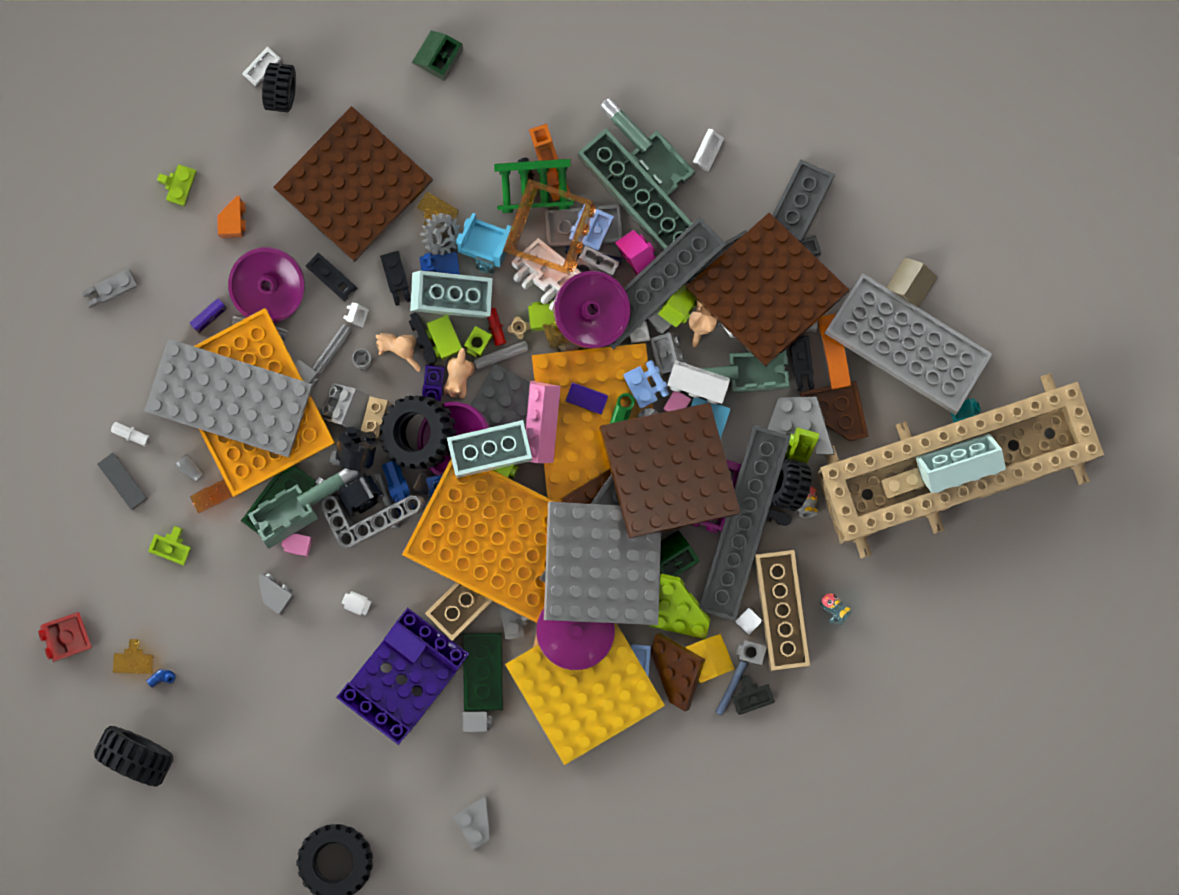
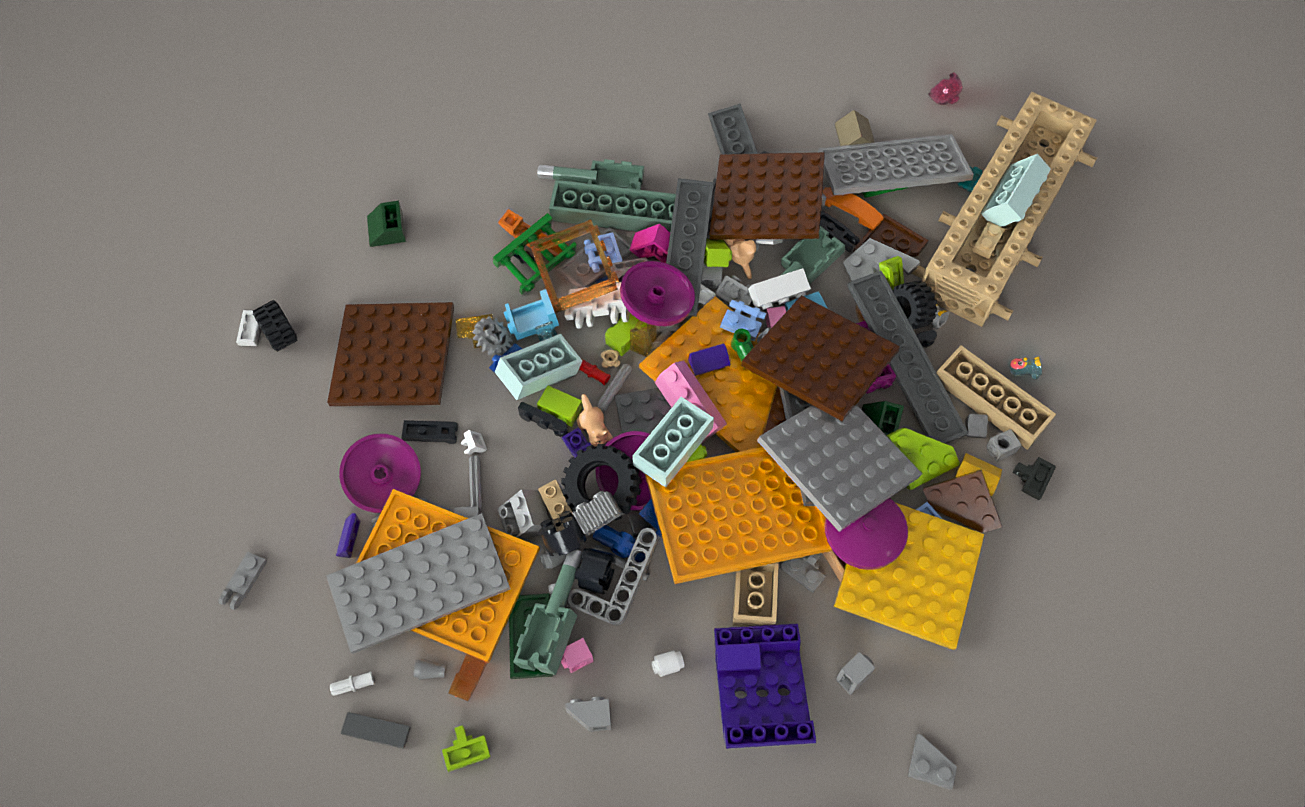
camera: 40 degrees left, 20 degrees down
(178, 184) = (243, 458): lime hinge -> none
(231, 219) = (310, 450): orange slope -> none
(361, 356) = (506, 466): light grey wheel -> none
(390, 457) = (597, 512): none -> light grey brick
(395, 275) = (482, 394): black hinge -> none
(402, 346) = (531, 436): light nougat animal -> none
(477, 333) = (589, 382): lime brick -> none
(483, 672) = (820, 633): dark green tile -> none
(708, 150) = (640, 151): white plate -> none
(731, 688) = (1014, 485): sand blue bar -> none
(1029, 309) = (947, 90): none -> clear pink cylinder

